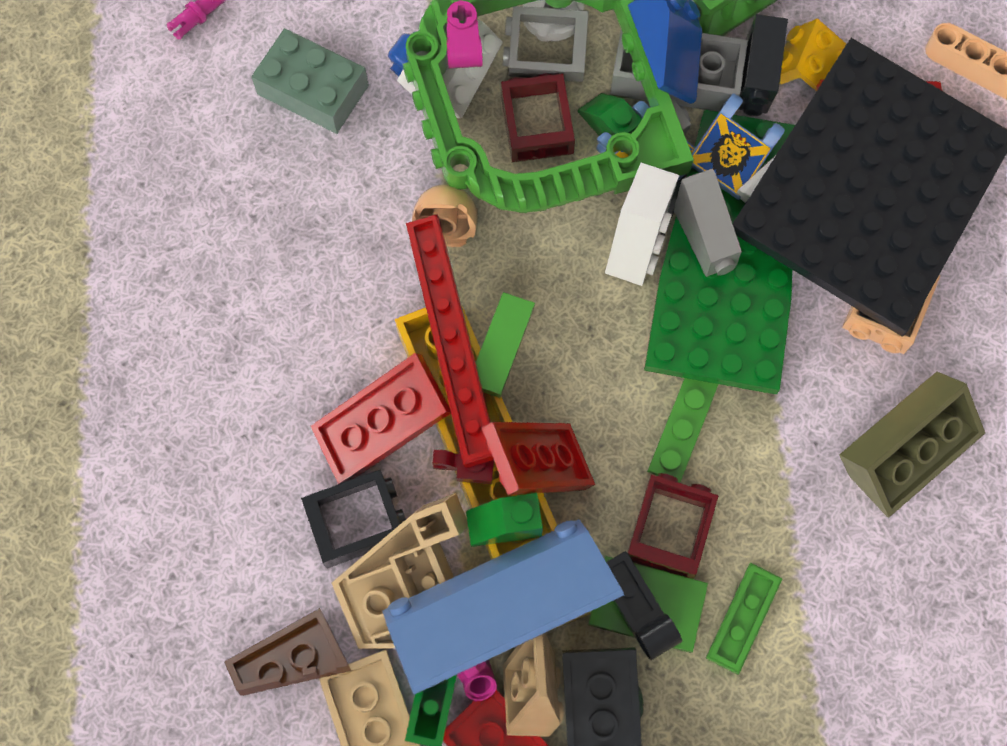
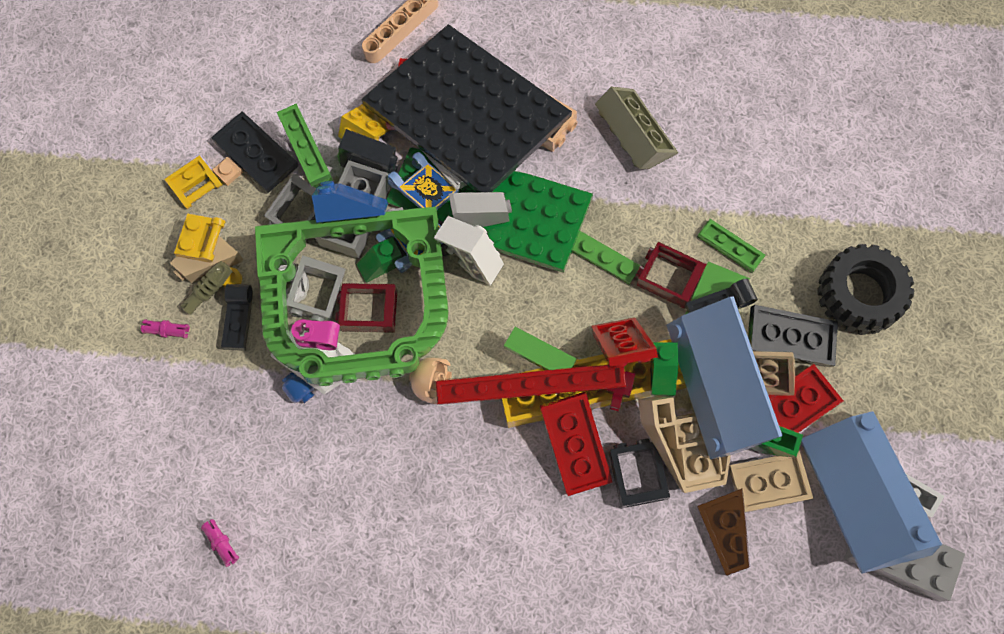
camera: 75 degrees left, 0 degrees up
(310, 80) = (301, 461): sand green brick -> none

